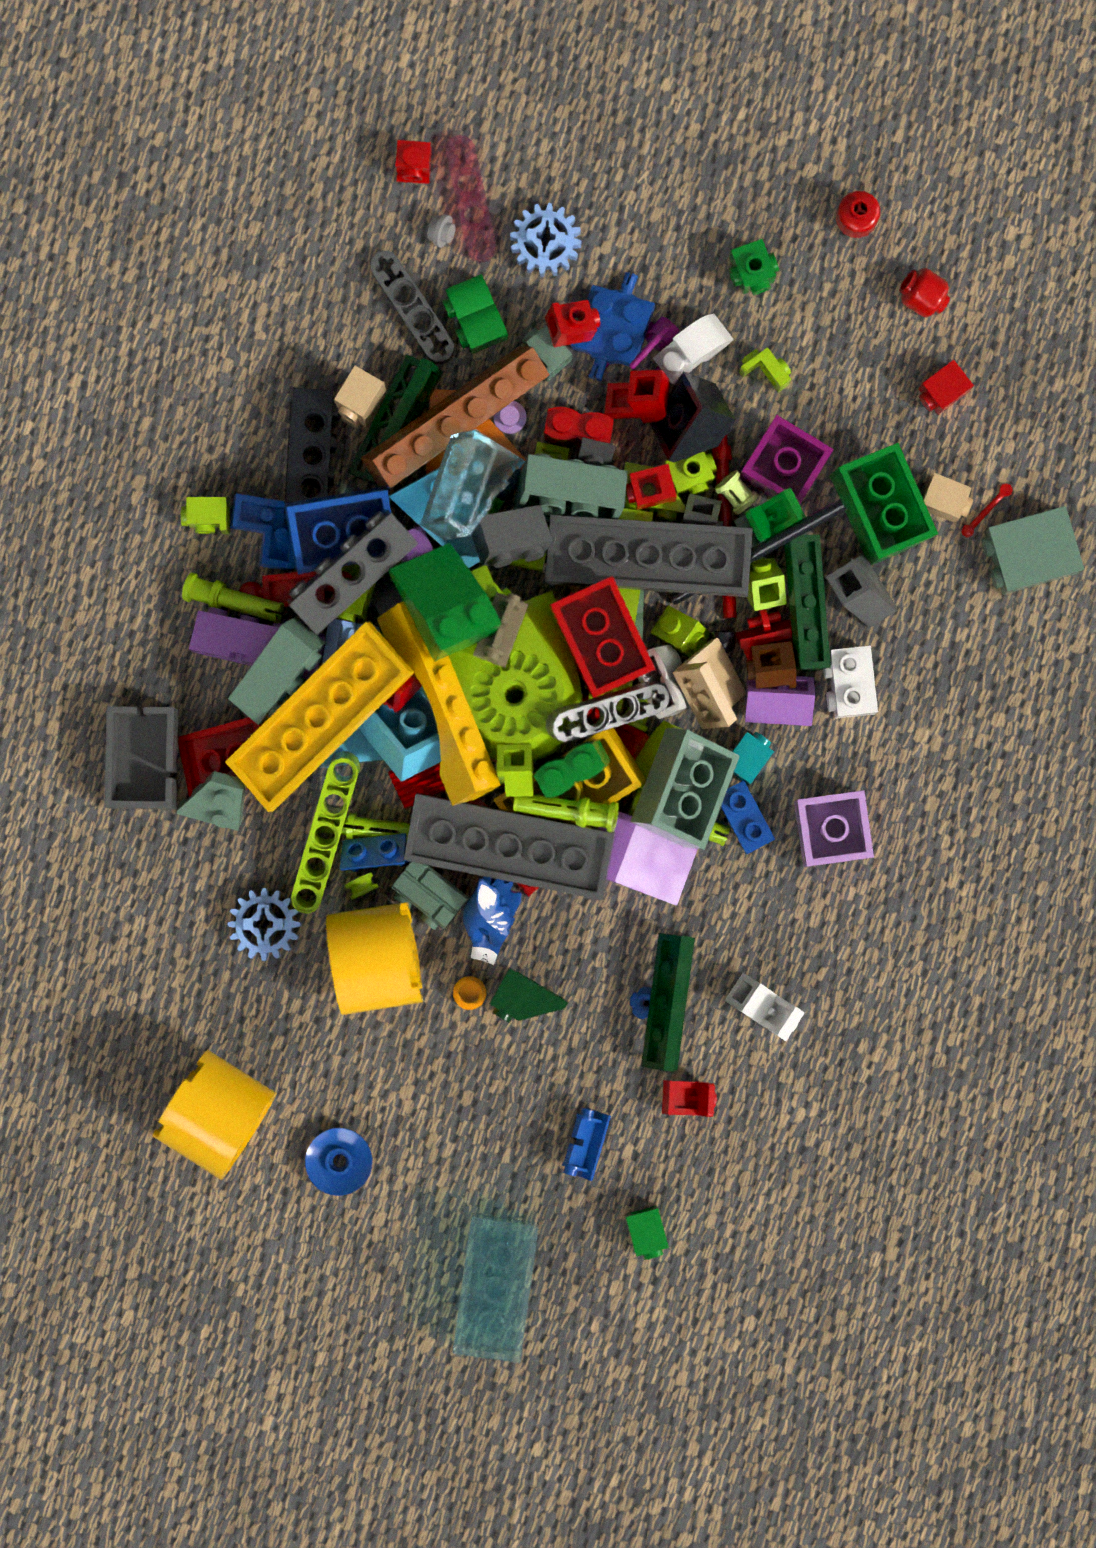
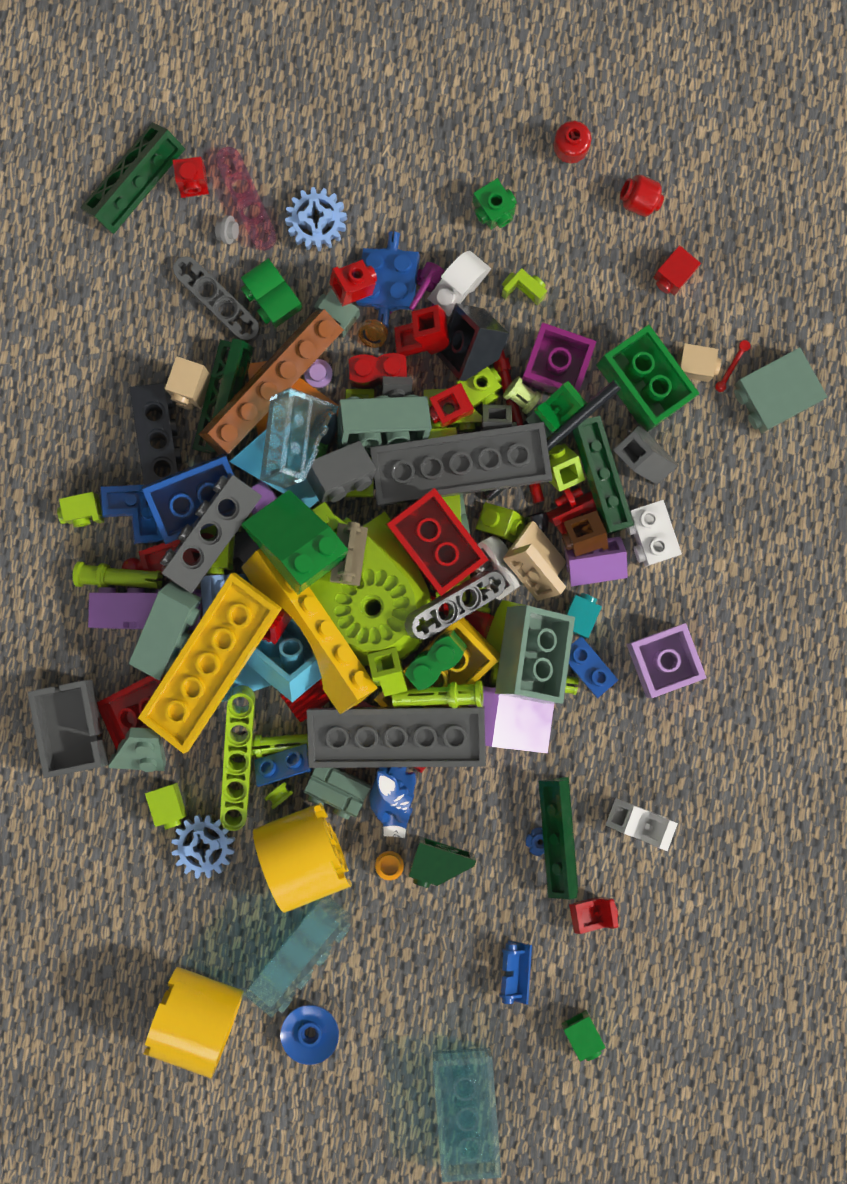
camera: 20 degrees left, 0 degrees up
(232, 870) = (166, 806): none -> lime brick
(345, 1066) = (294, 959): none -> clear light blue brick
(349, 148) = (135, 177): none -> dark green fence
(582, 385) = (373, 333): none -> clear orange tile

